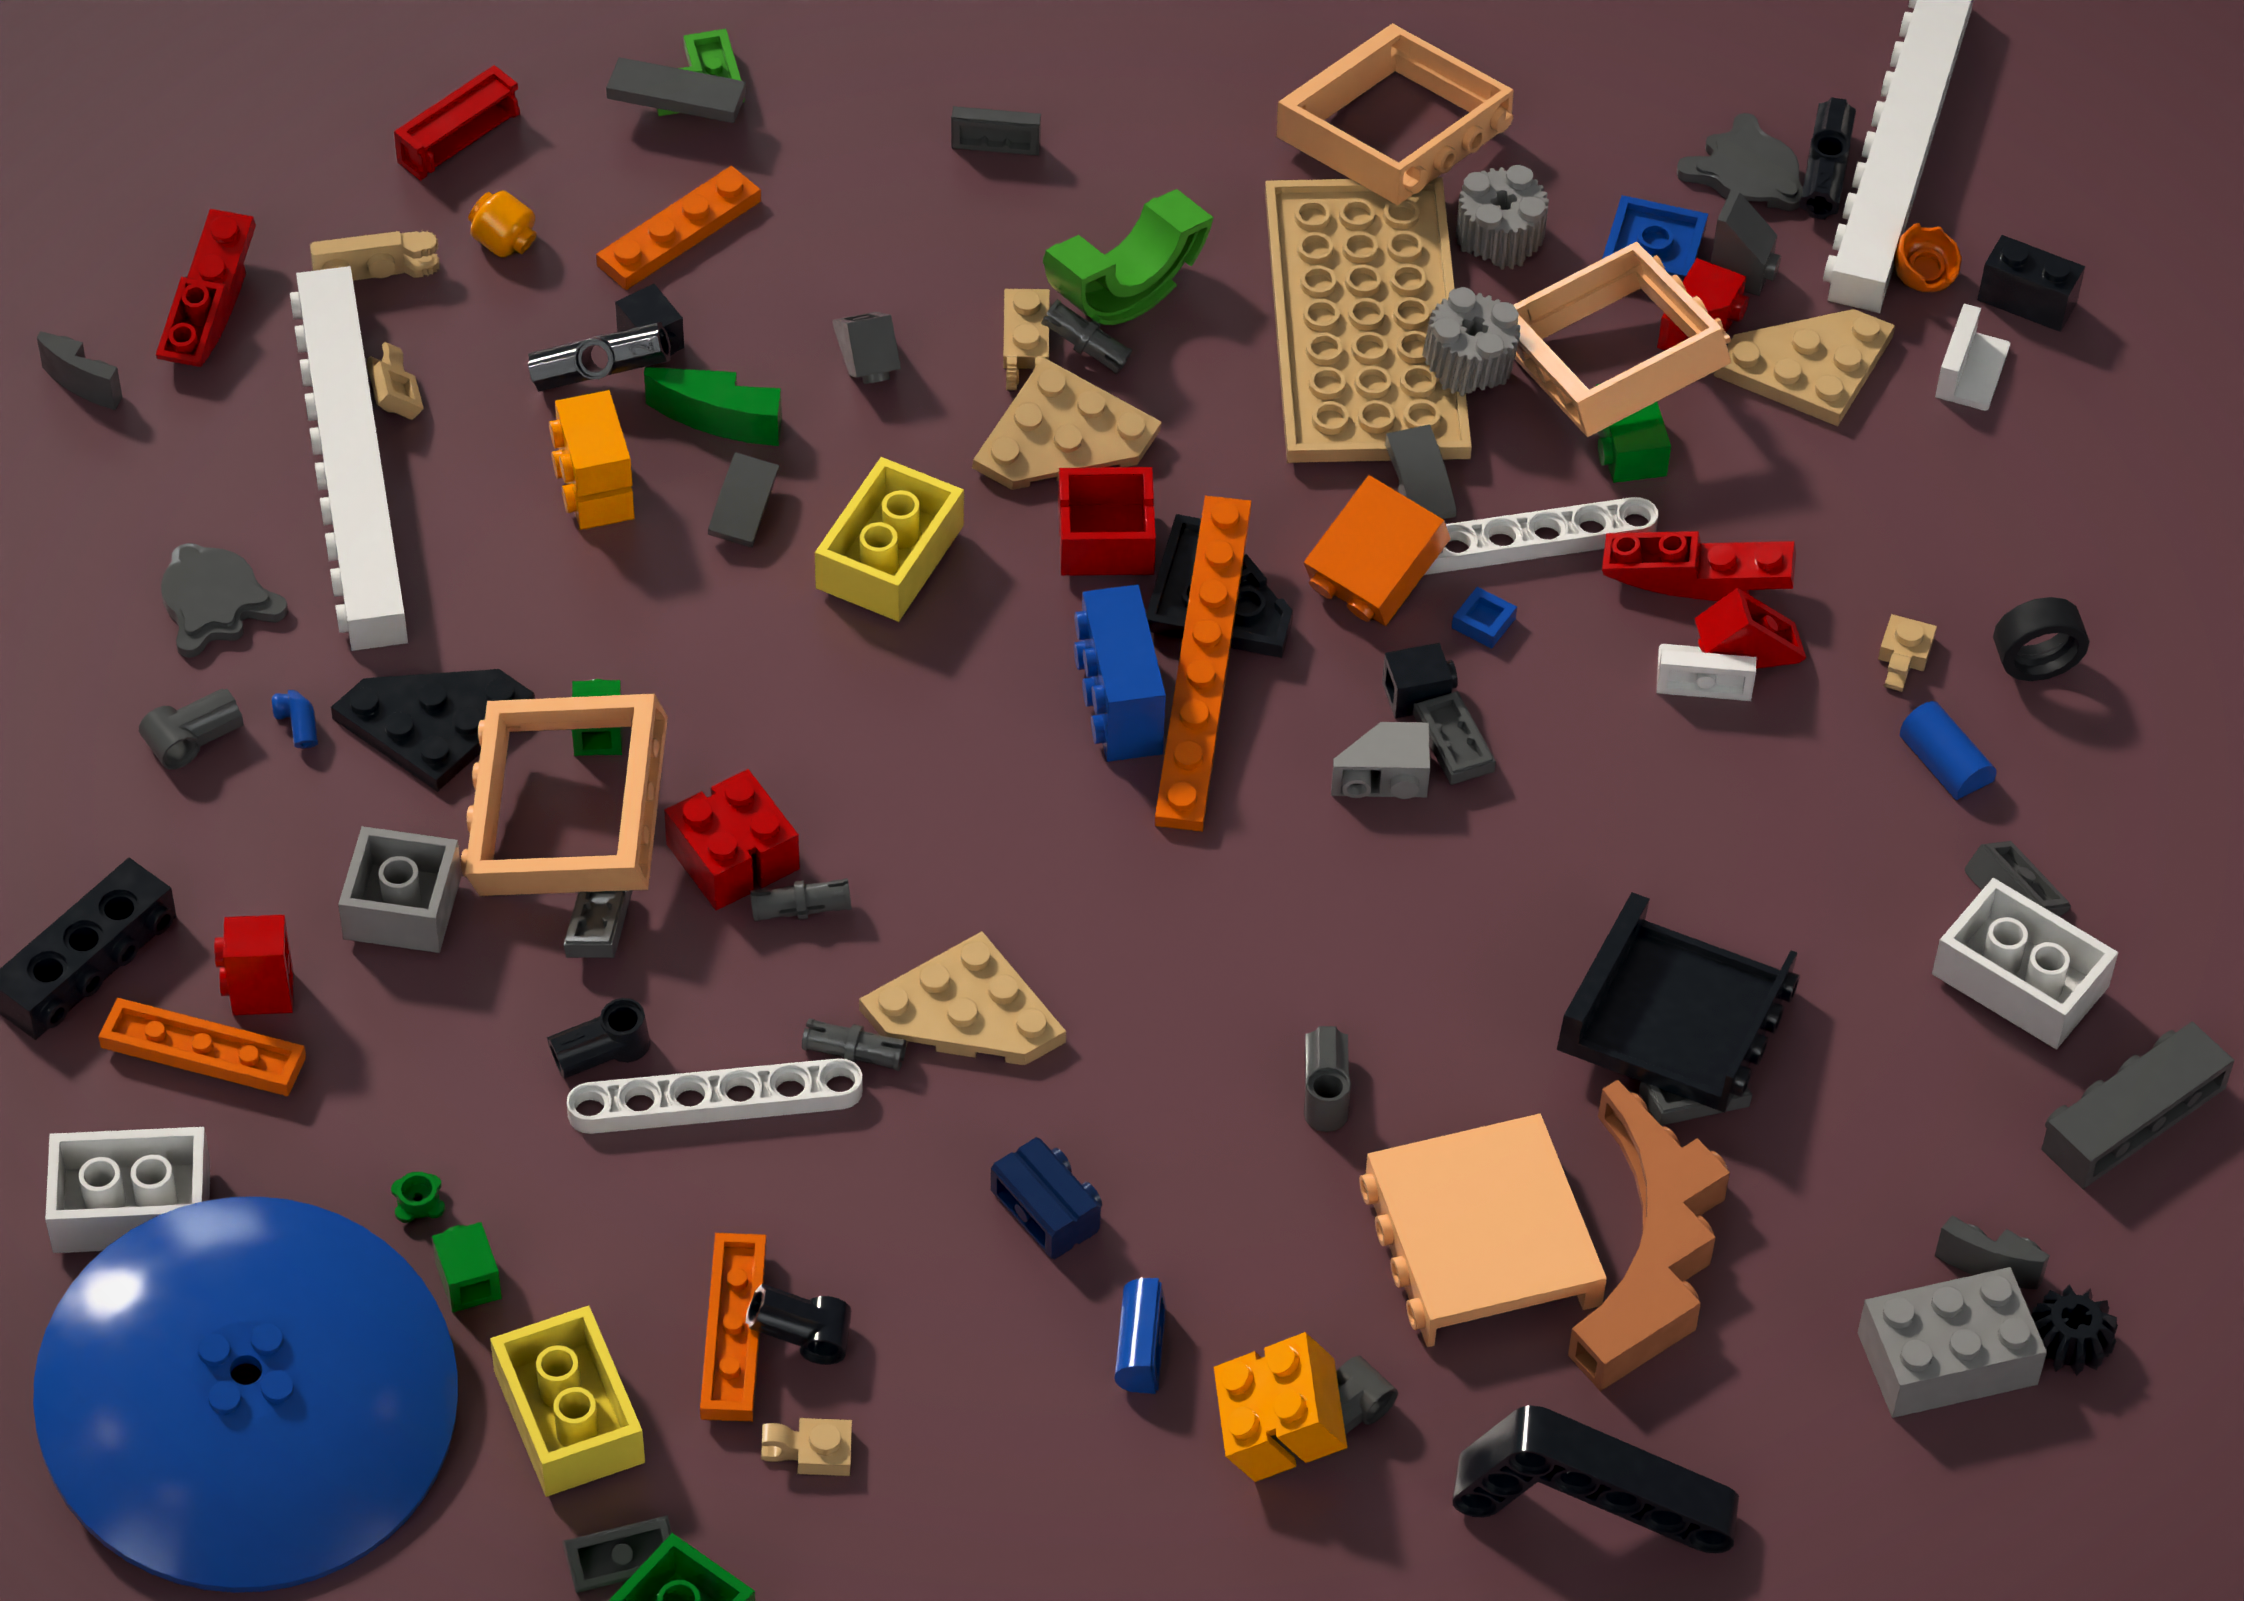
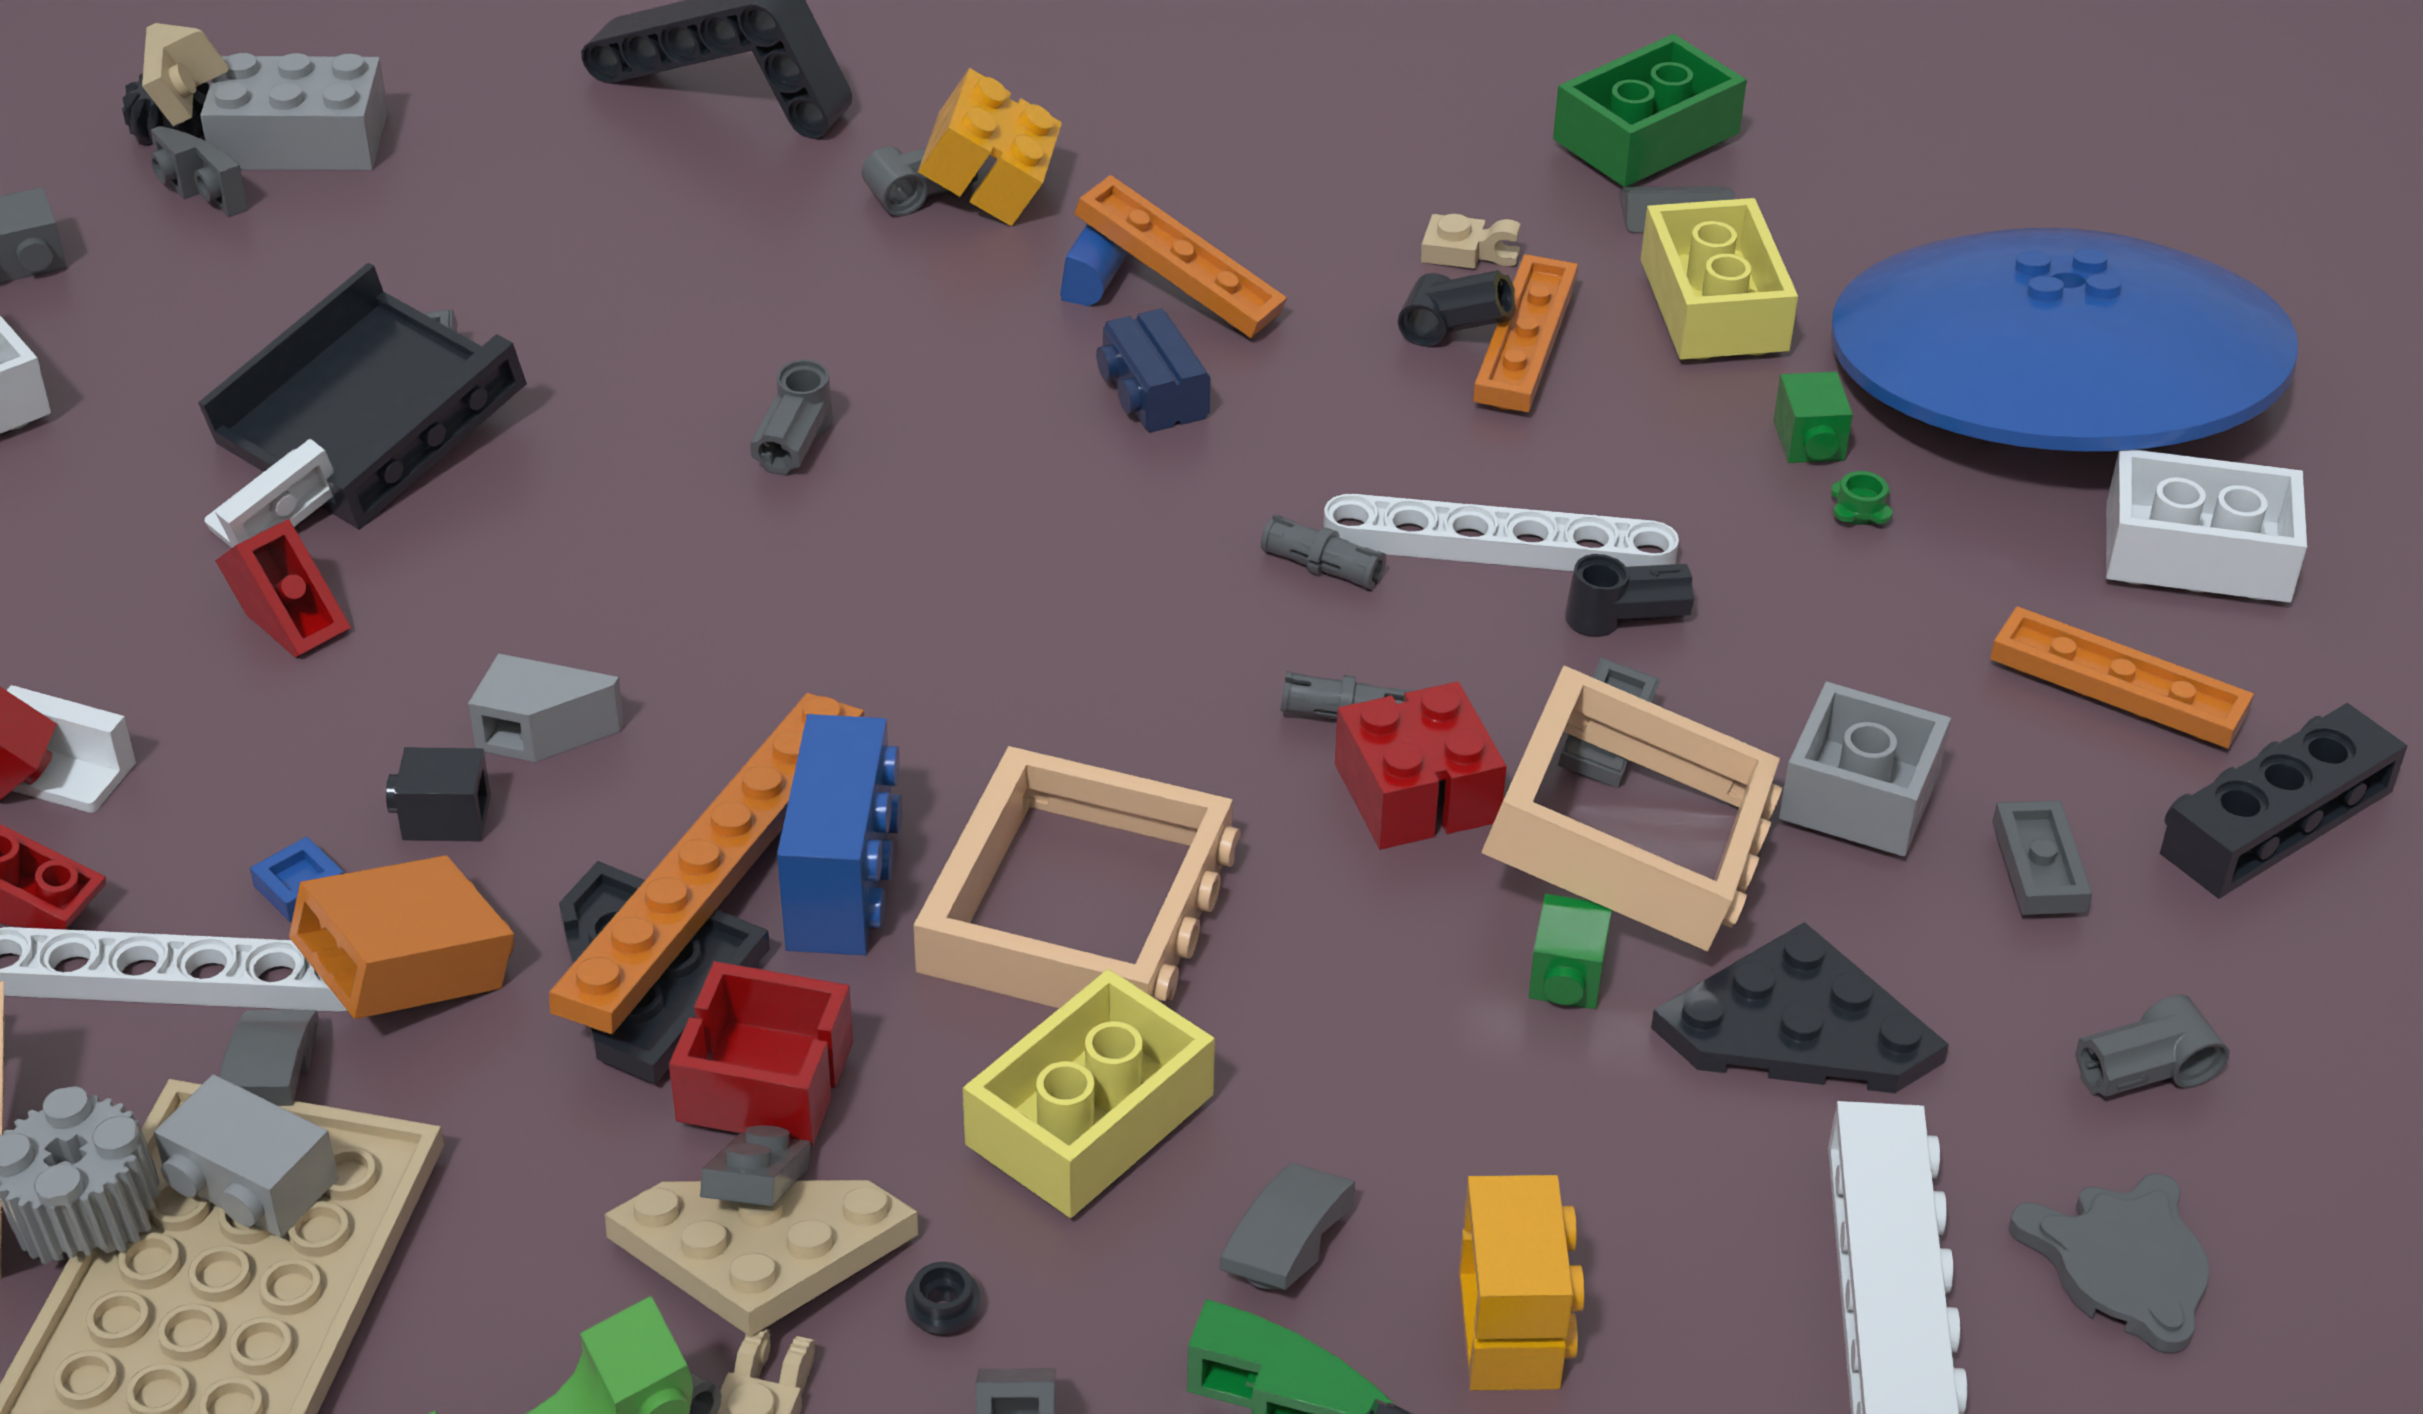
camera: 165 degrees left, 10 degrees down
(255, 965) = (2057, 701): red brick -> none
(266, 868) = (2042, 857): none -> dark grey plate
(302, 717) = (1994, 1048): blue arm -> none
(941, 425) = (942, 1283): none -> black plate
(947, 768) = (1046, 972): none -> light nougat window
(965, 1006) = (1178, 575): tan plate -> none
(1061, 1311) = (1180, 256): none -> orange plate
(1078, 438) = (756, 1167): none -> dark grey plate
(1383, 382) = (246, 1156): none -> light grey brick
(1455, 738) = (436, 713): dark grey plate -> none
(1481, 1224) = (701, 262): light nougat panel -> none
(1635, 823) = (283, 589): none -> red slope
(1654, 1300) = (522, 225): nougat arch -> none
(1691, 906) = (283, 492): none -> white panel
(2059, 1291) = (175, 64): none -> tan slope

